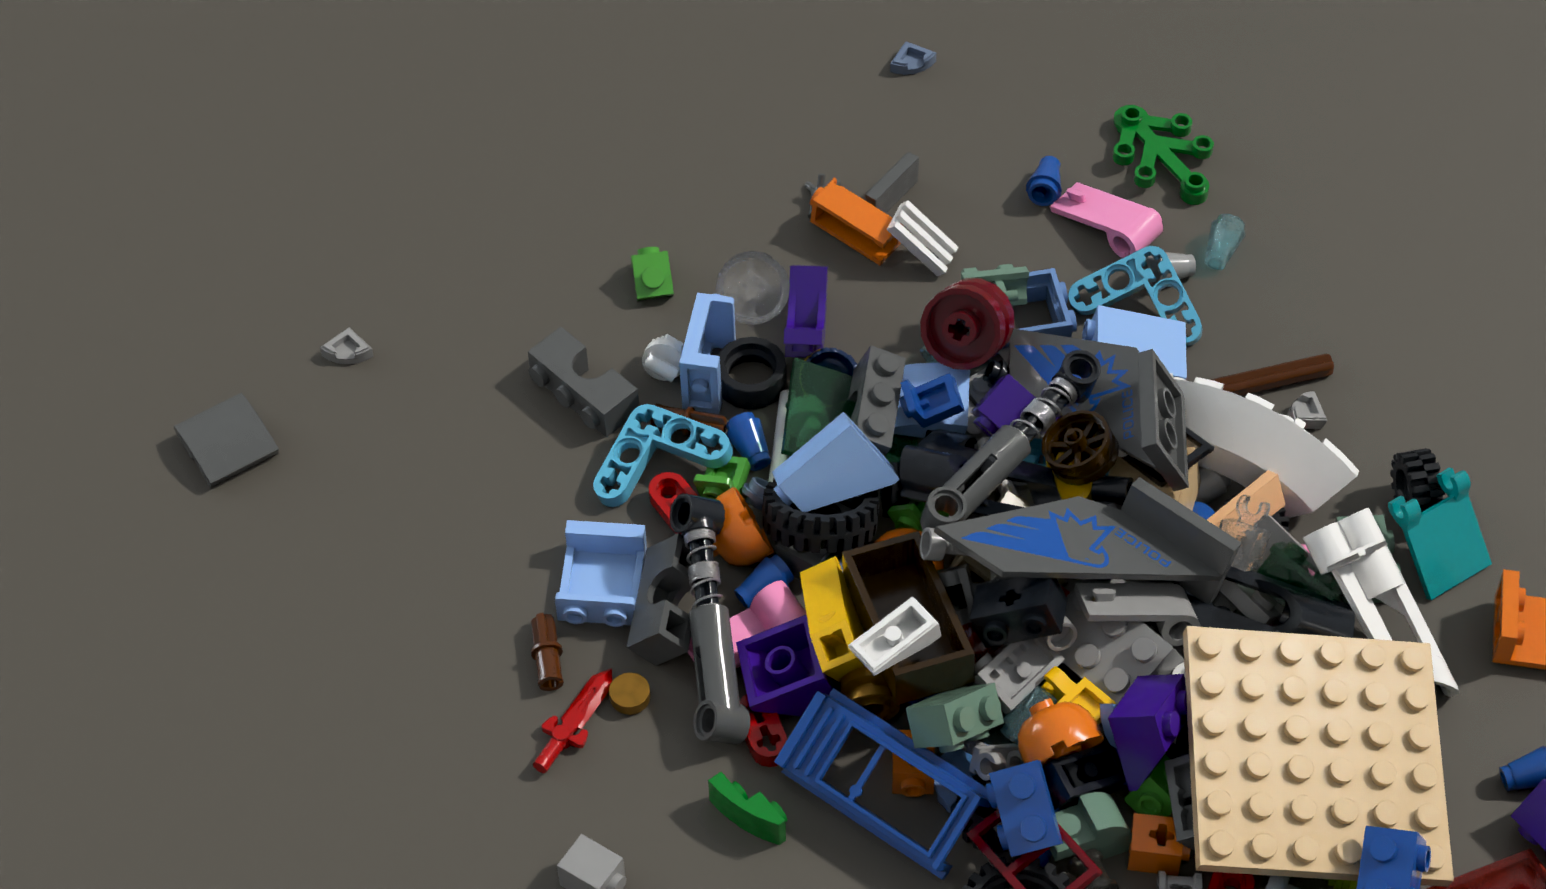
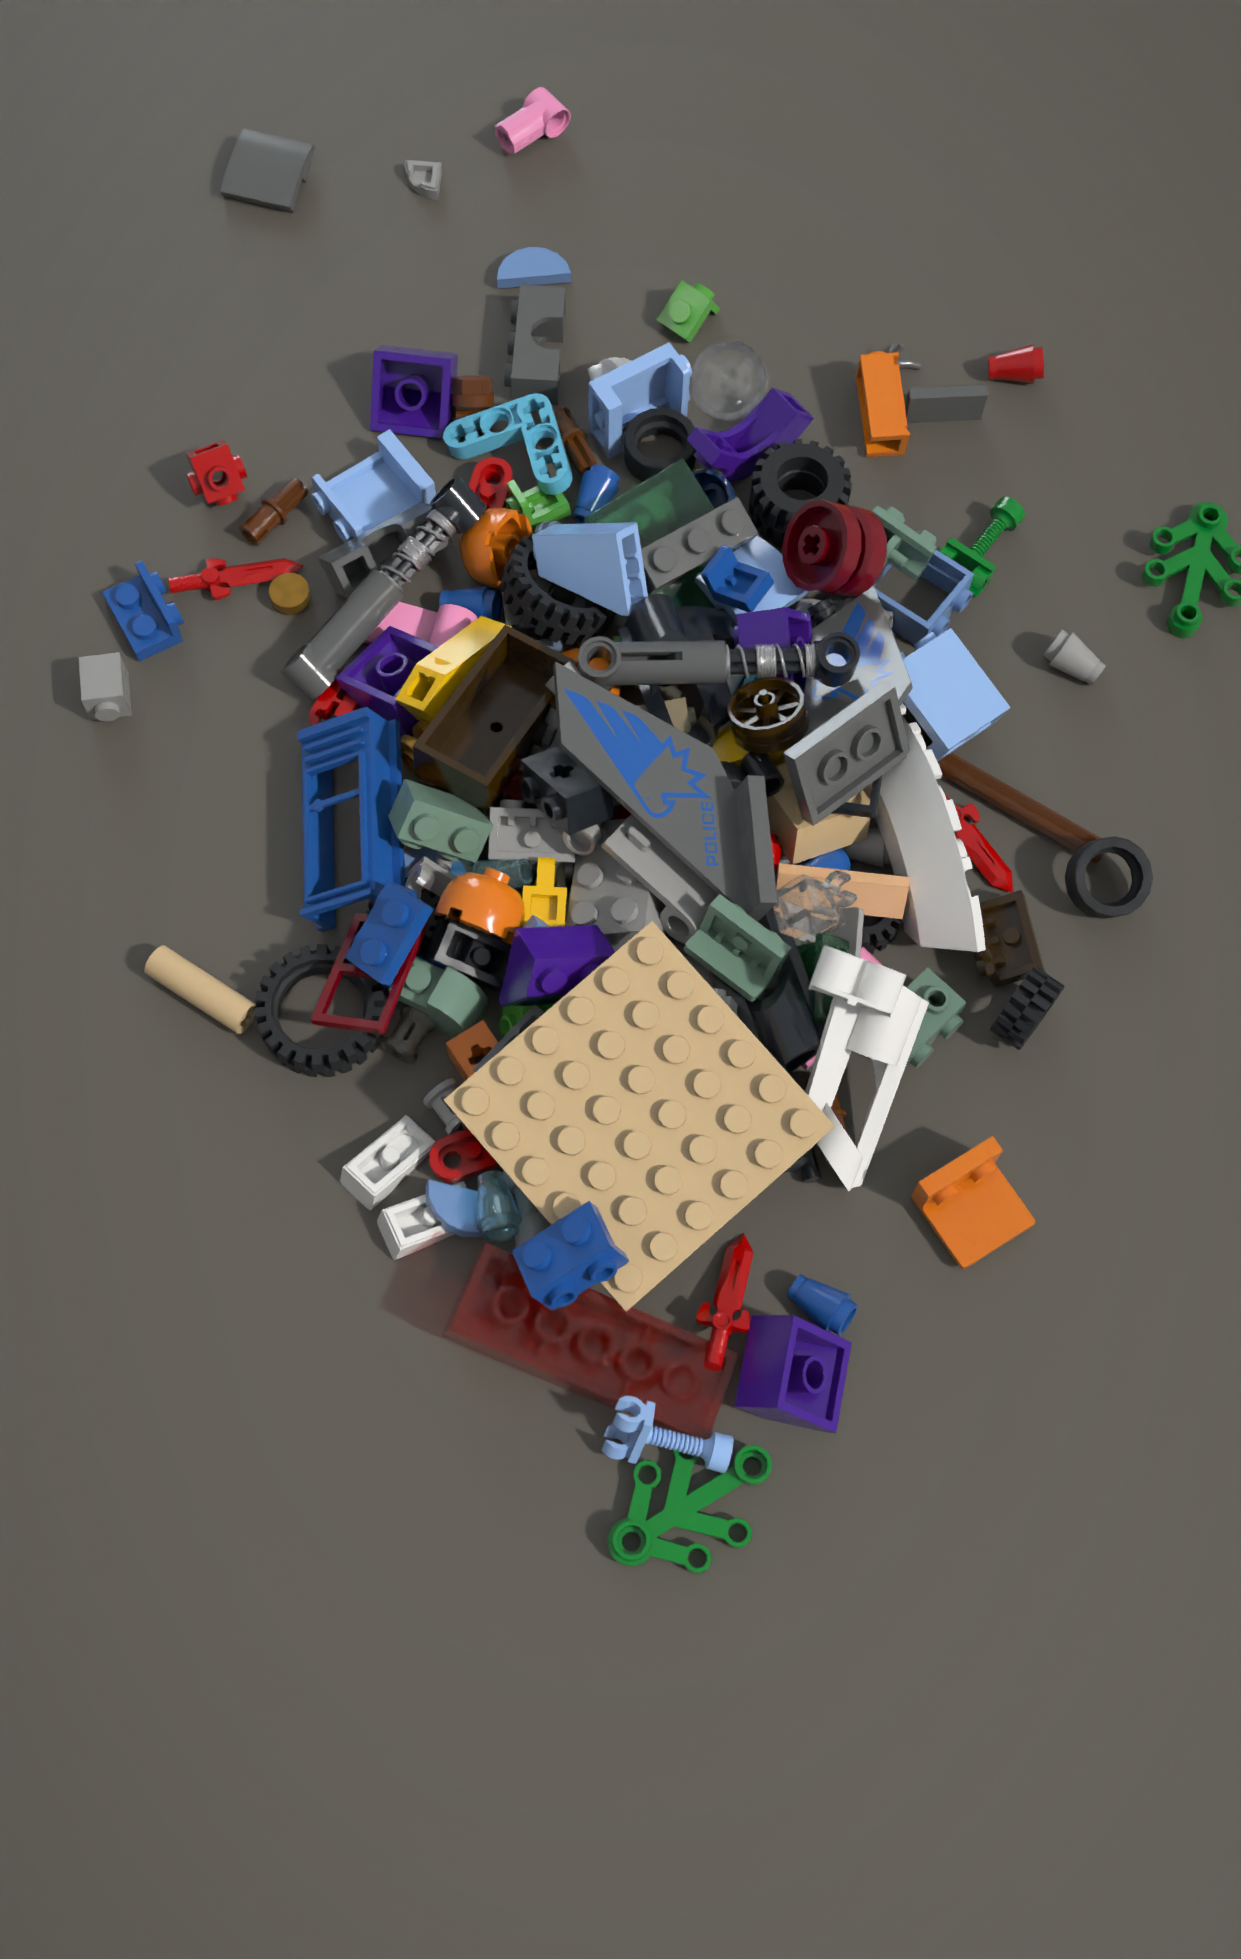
camera: 45 degrees right, 15 degrees up
(379, 241) = (539, 116): none -> bright pink piece
(478, 660) = (205, 463): none -> red brick
(507, 338) = (532, 267): none -> medium blue tile
(539, 485) = (412, 390): none -> dark purple slope
(547, 800) = (143, 613): none -> blue bracket
(585, 454) = (471, 394): none -> reddish brown piece
(753, 815) = (251, 746): green slope -> none
(878, 297) = (791, 468): none -> black tyre
(896, 637) = (447, 719): white slope -> none
(903, 126) = (1017, 365): none -> red cone
(912, 59) = (1099, 321): sand blue tile -> none
(924, 234) = (924, 457): white tile -> none
(1016, 222) = (1005, 516): none -> green bar
(1045, 183) = (1068, 506): blue cone -> none
(1125, 222) = (1085, 586): bright pink door -> none
(1138, 280) = (1031, 646): medium azure beam -> none
(1224, 239) = (1148, 680): clear light blue cone -> none
(1240, 599) = (737, 948): none -> sand green bracket
(1308, 410) = (1029, 870): light grey tile -> none
(1368, 459) = (1008, 940): none -> dark brown bracket
(1377, 358) = (1140, 873): none -> black tyre
(1445, 537) = (989, 1069): teal flag -> none
(1487, 826) = (727, 1301): none -> red sword

